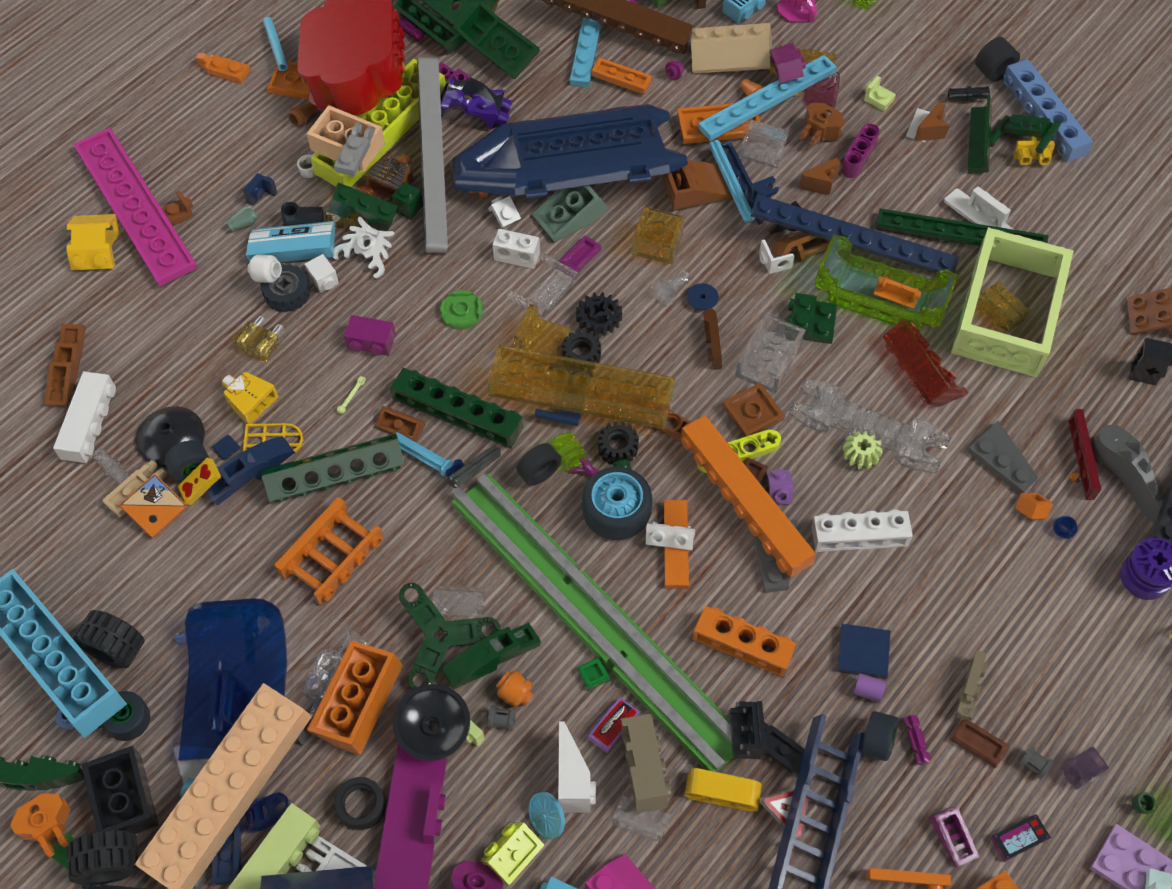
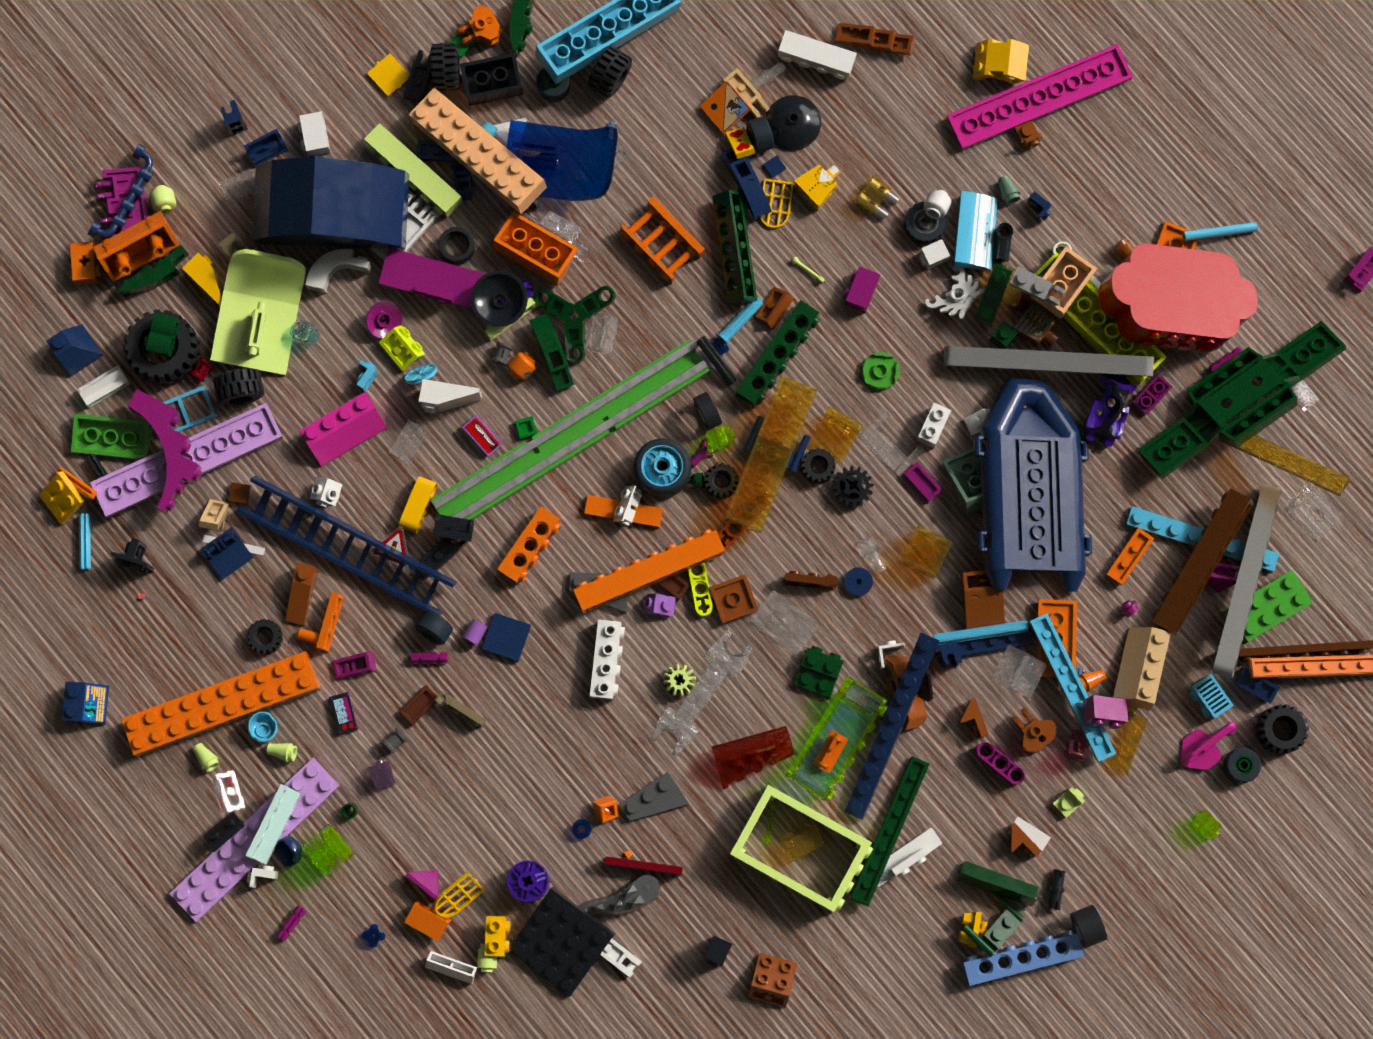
camera: 100 degrees right, 20 degrees up
(223, 67) = (1198, 183): orange hinge -> none
(644, 763) = (442, 449): dark tan wedge -> none

